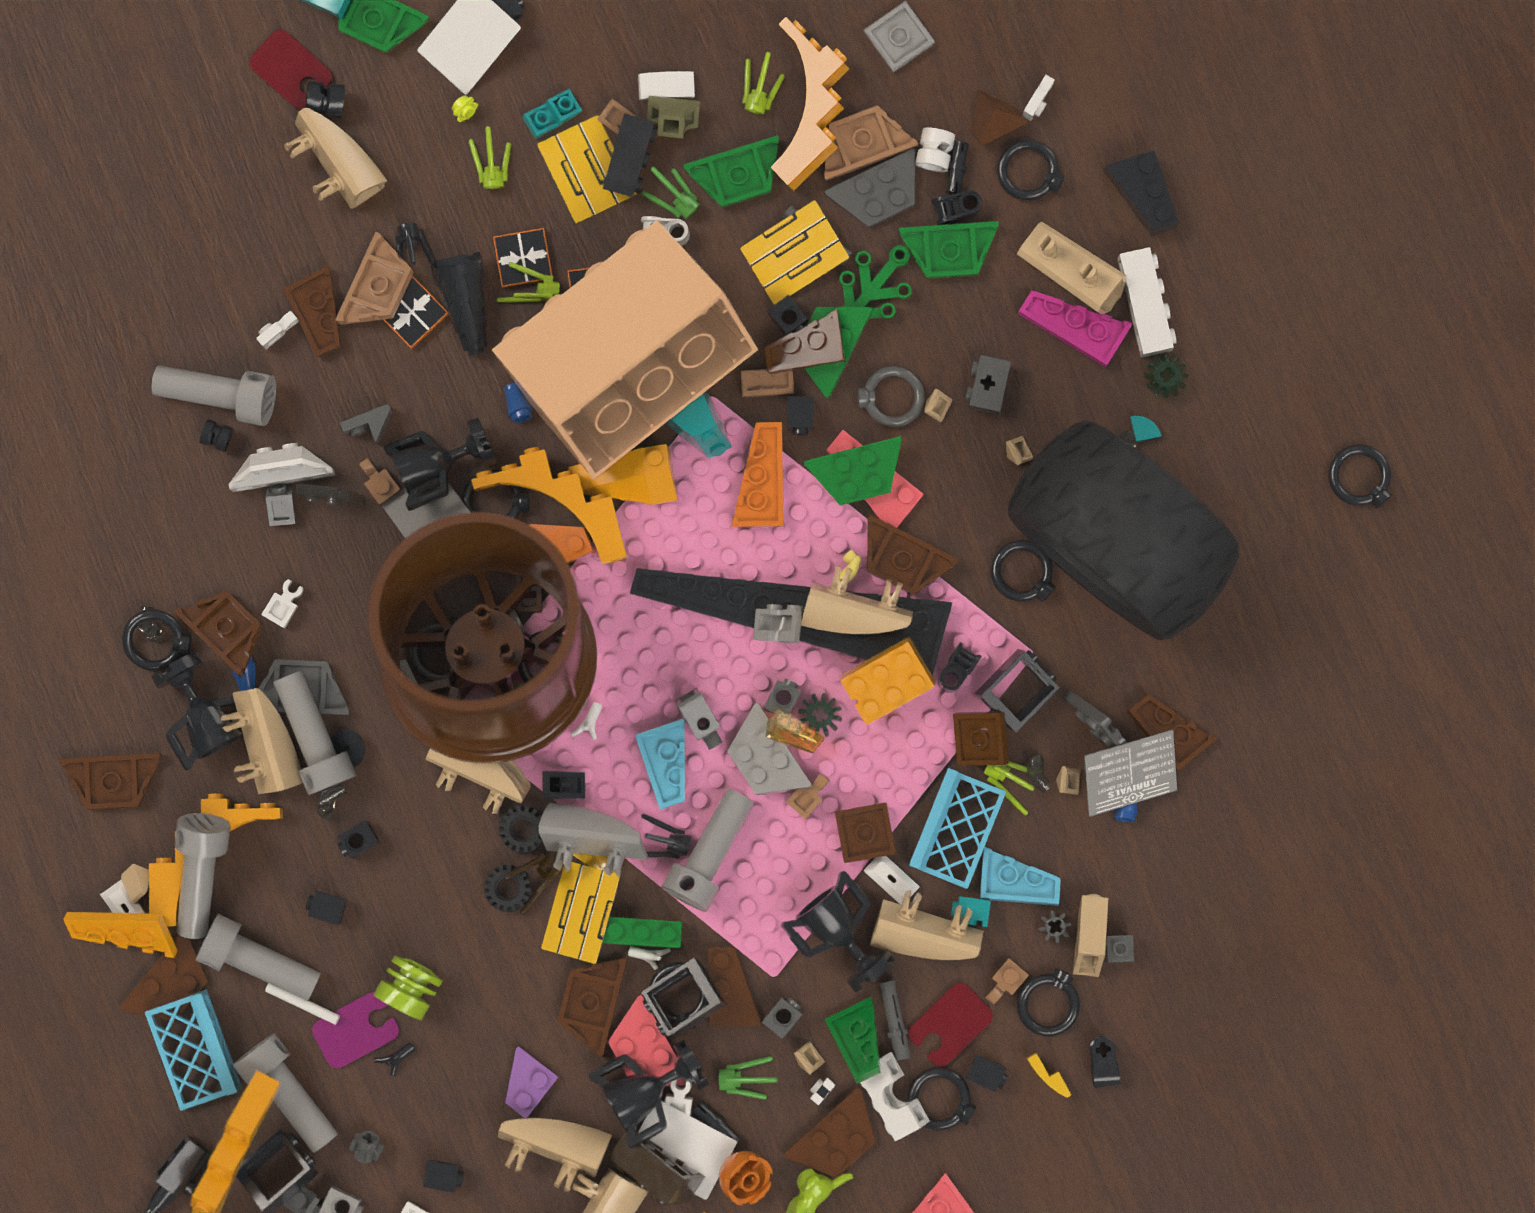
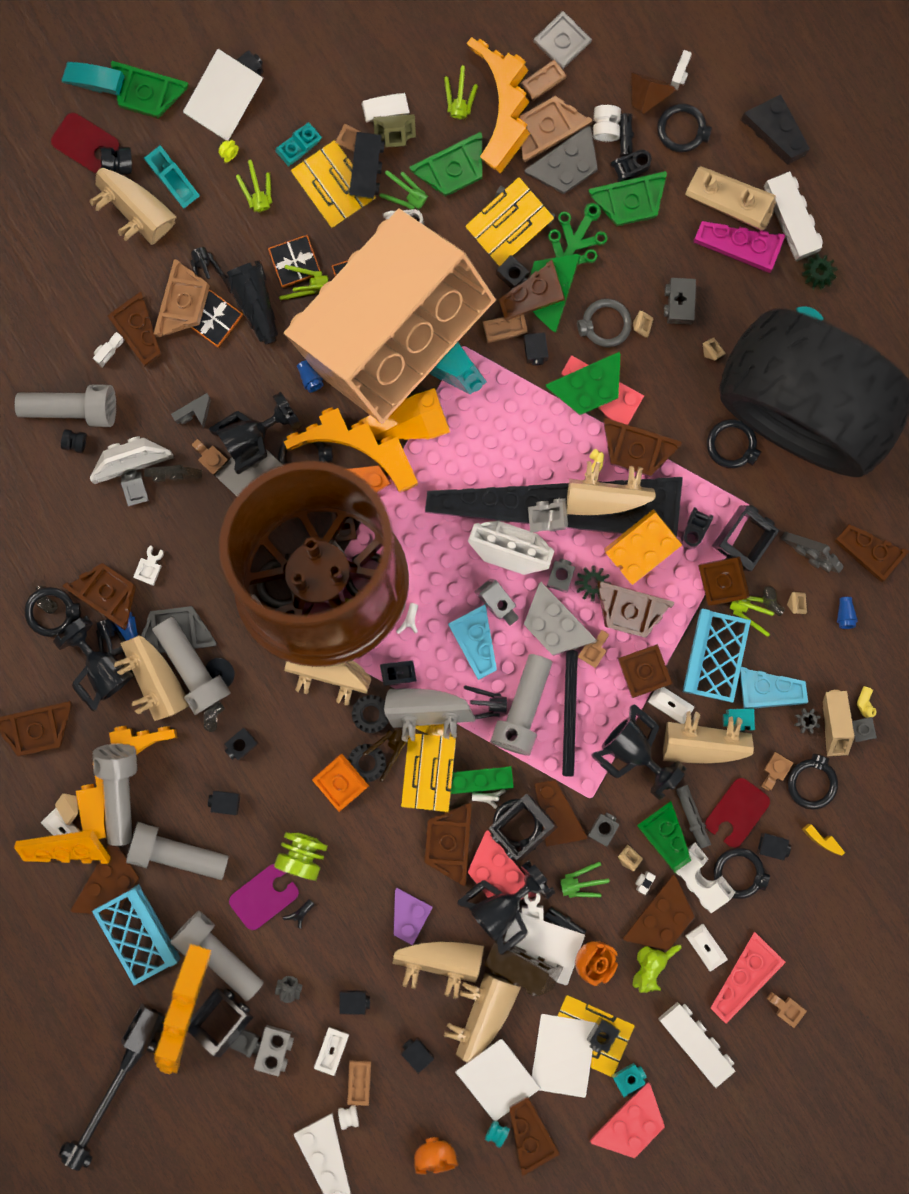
camera: 15 degrees left, 0 degrees up
(217, 675) = (105, 631): none -> black plant
(303, 1004) = (219, 883): white bar -> none
(389, 129) = (171, 176): none -> teal slope
(471, 906) = (340, 782): none -> orange tile
(726, 654) = (510, 547): none -> white wedge
(762, 483) = (516, 413): orange wing -> none
(765, 869) = (570, 713): none -> black axle
(791, 731) = (569, 598): clear yellow slope -> none
(860, 754) = (630, 610): none -> wing
(866, 83) = (543, 80): none -> medium nougat plate
(880, 1168) = (700, 937): none -> white piece
(1104, 1067) = (866, 825): black piece -> none
(1128, 917) = (864, 704): none -> light yellow arm
(1130, 773) = (848, 588): light grey sticker -> none

